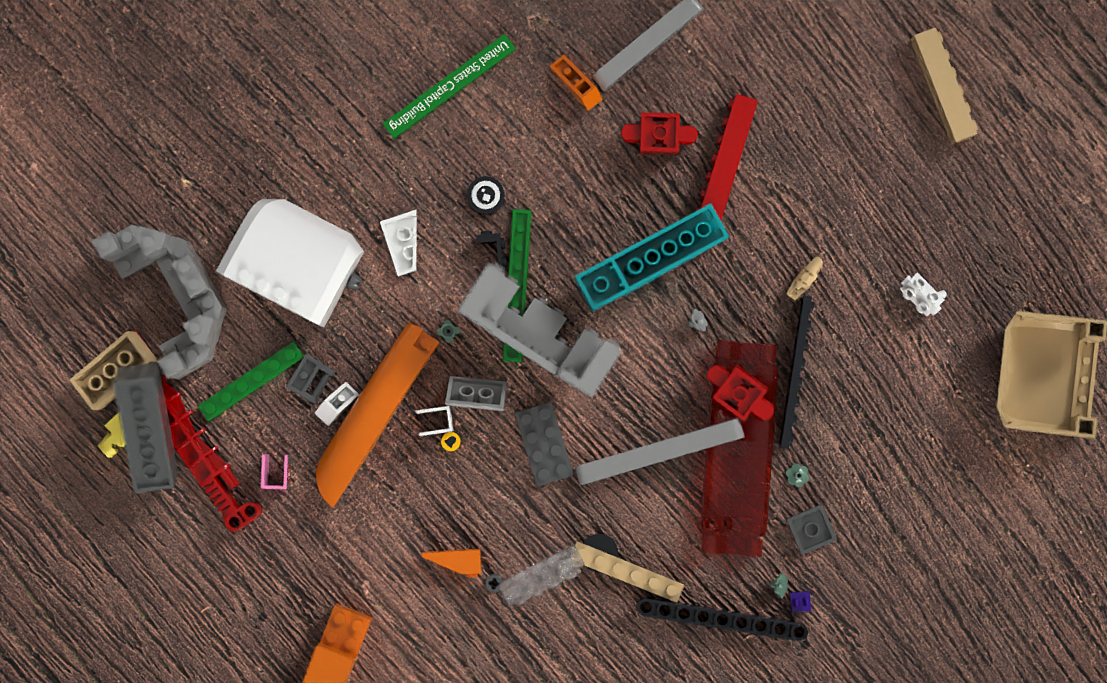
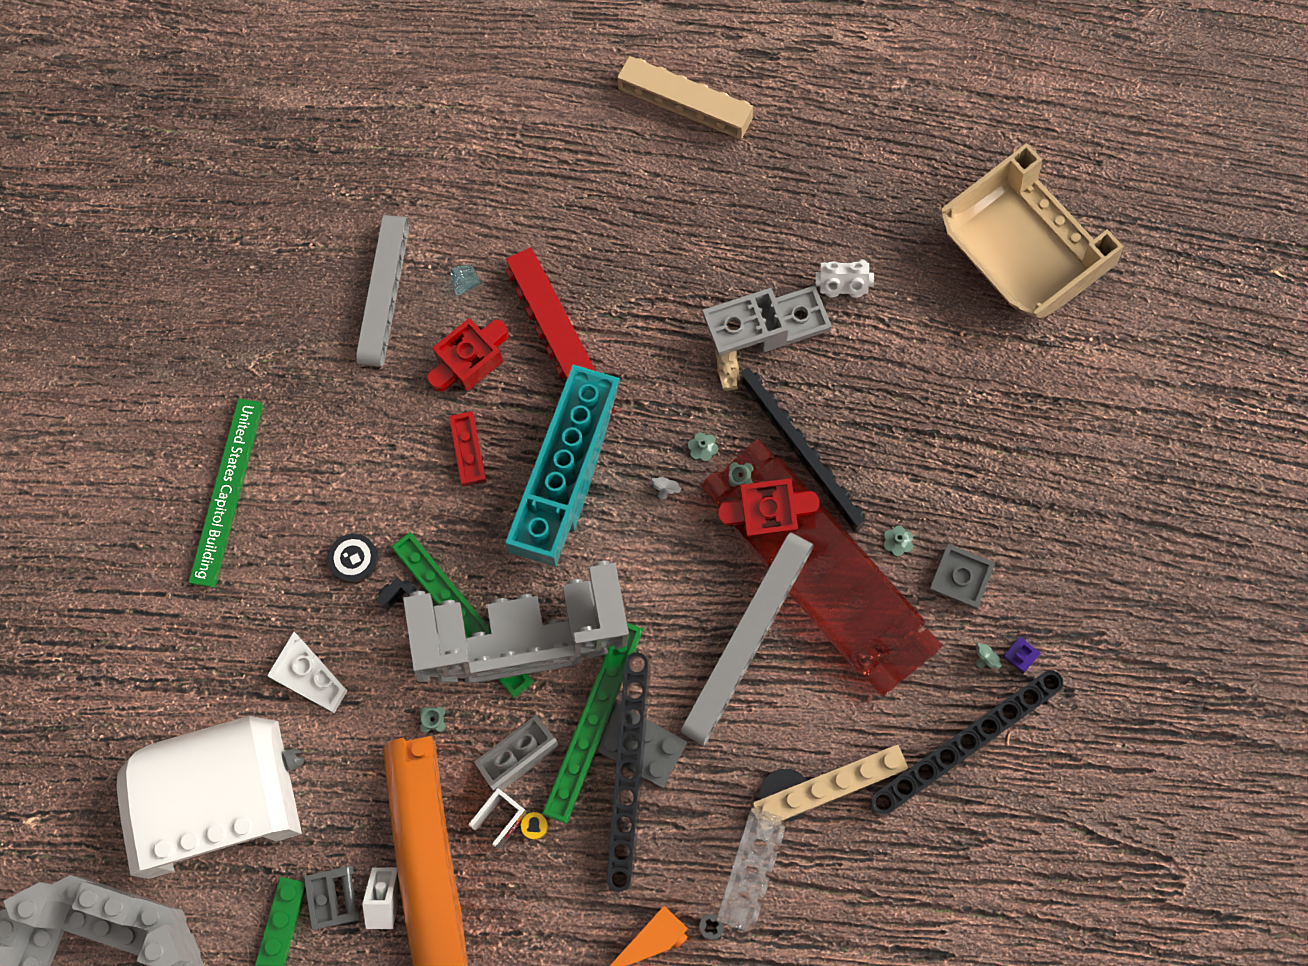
camera: 35 degrees left, 15 degrees down
(518, 466) = (623, 783): none -> black beam
(527, 419) = (590, 730): none -> green tile
(576, 82) = (348, 380): orange slope -> none
(607, 190) = (467, 449): none -> red plate
(702, 80) = (464, 278): none -> clear light blue slope
(738, 320) = (705, 451): none -> sand green plant
(739, 355) = (735, 469): none -> sand green plate
(850, 278) = (766, 320): none -> light grey bracket

